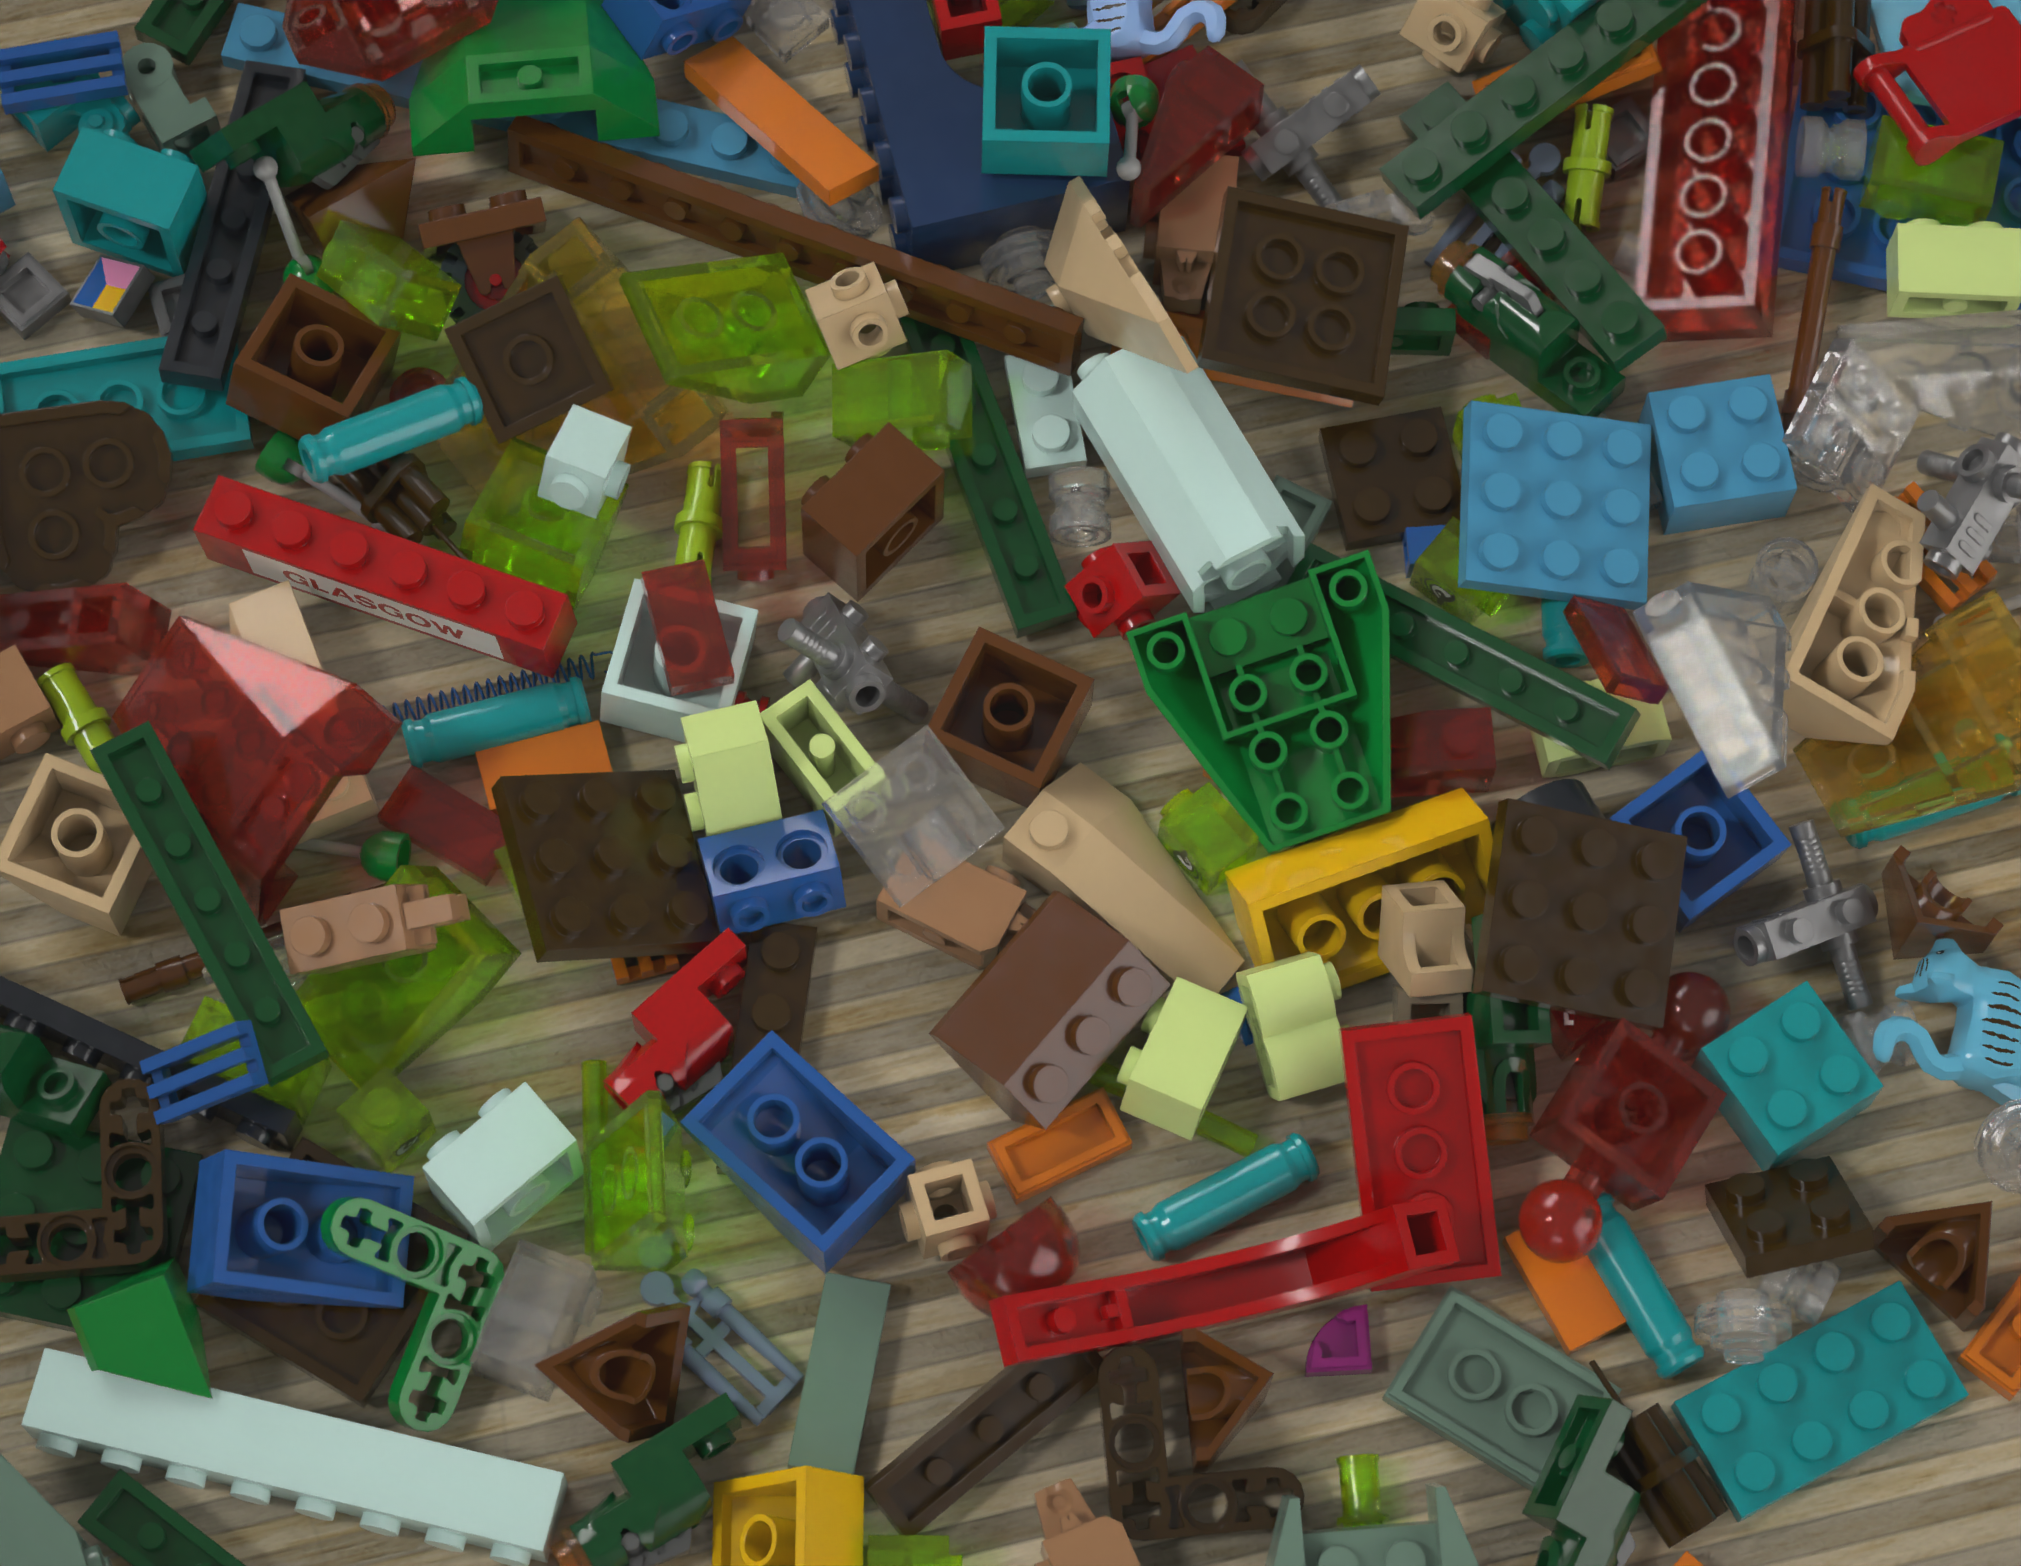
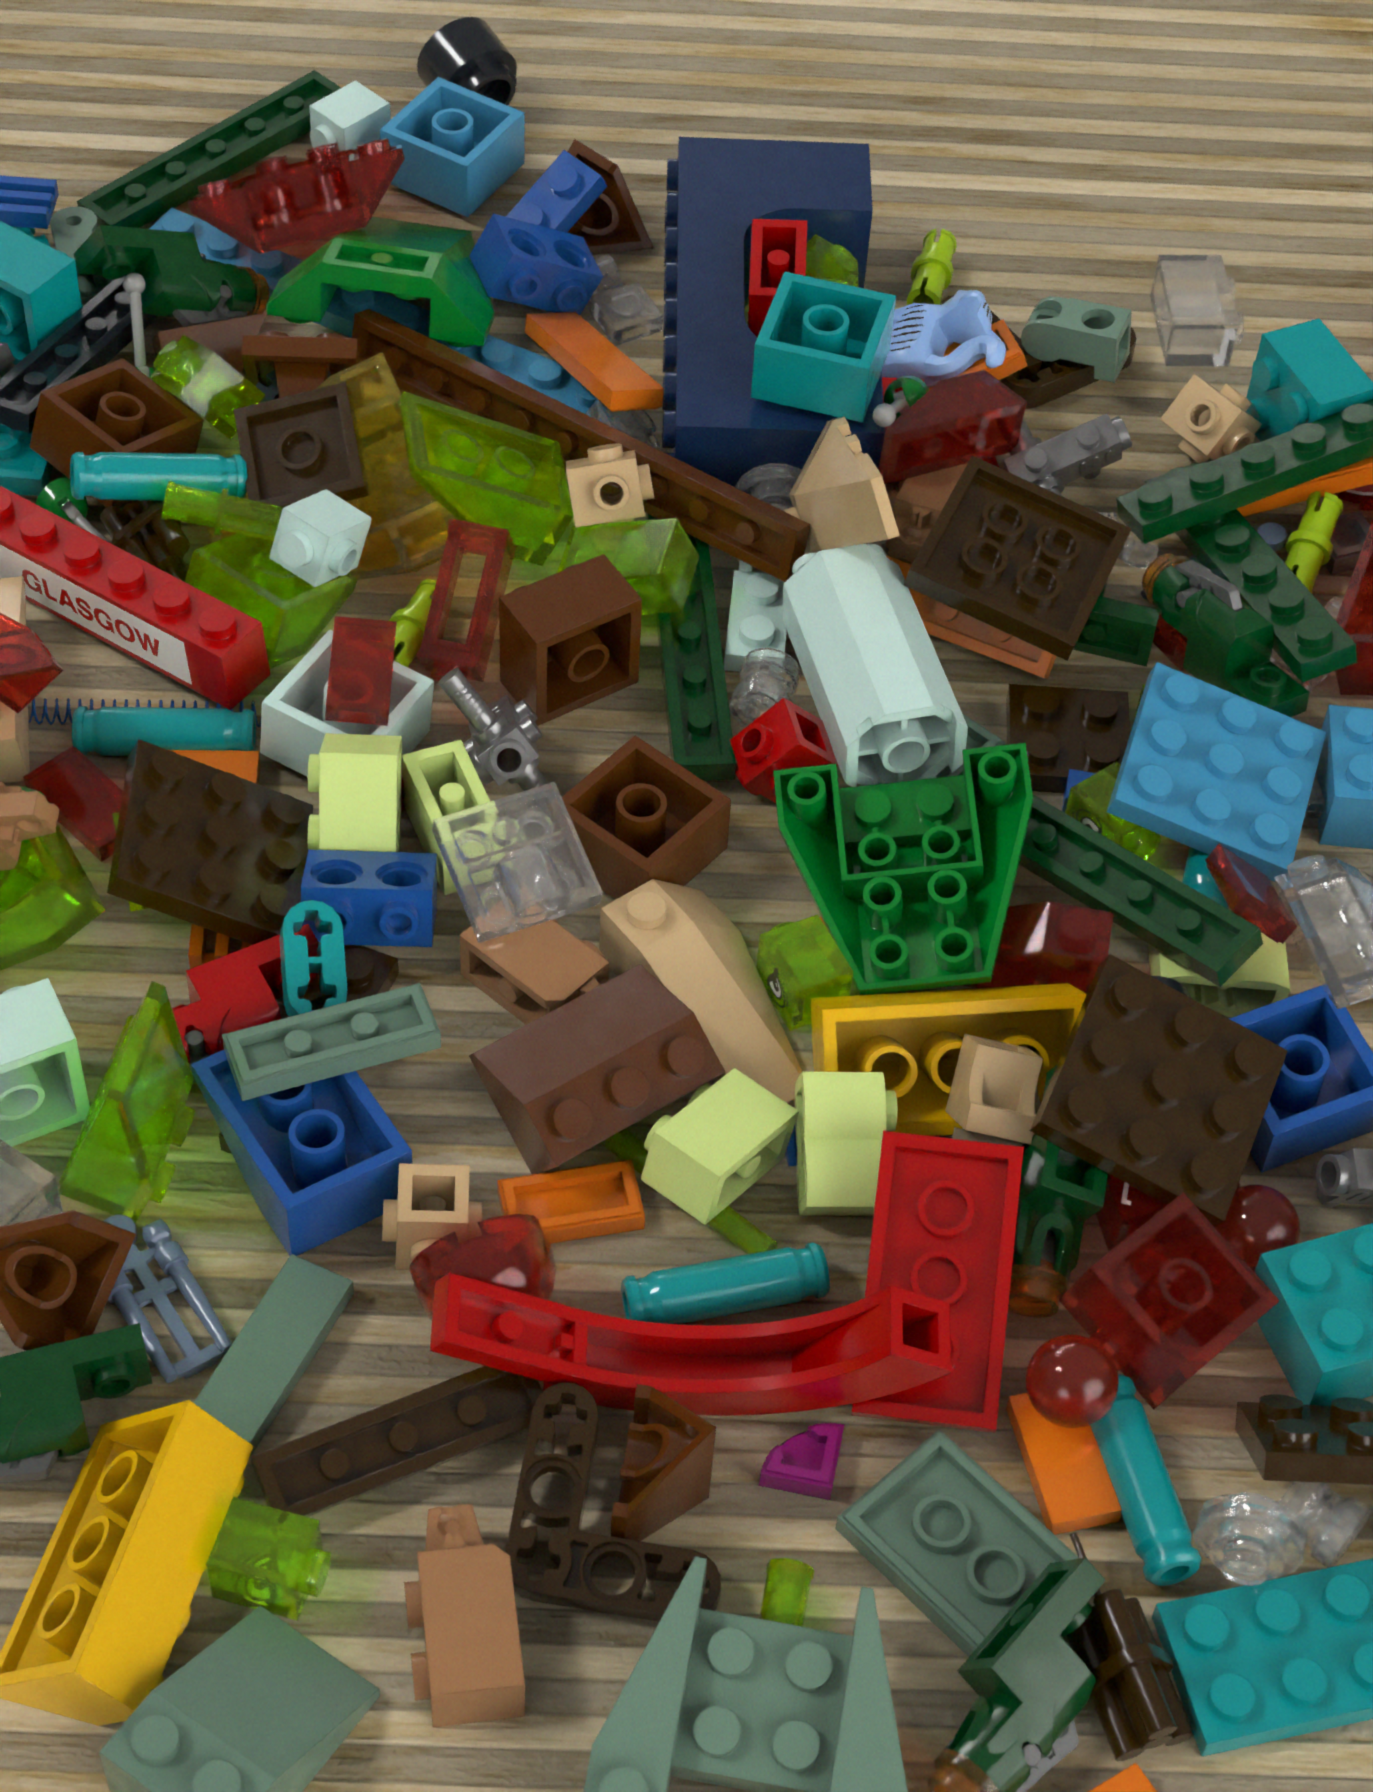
camera: 15 degrees right, 20 degrees down
(473, 456) = (221, 511): none -> clear neon green axle
(766, 971) = (297, 965): none -> teal beam
(804, 1065) = (331, 1041): none -> sand green tile

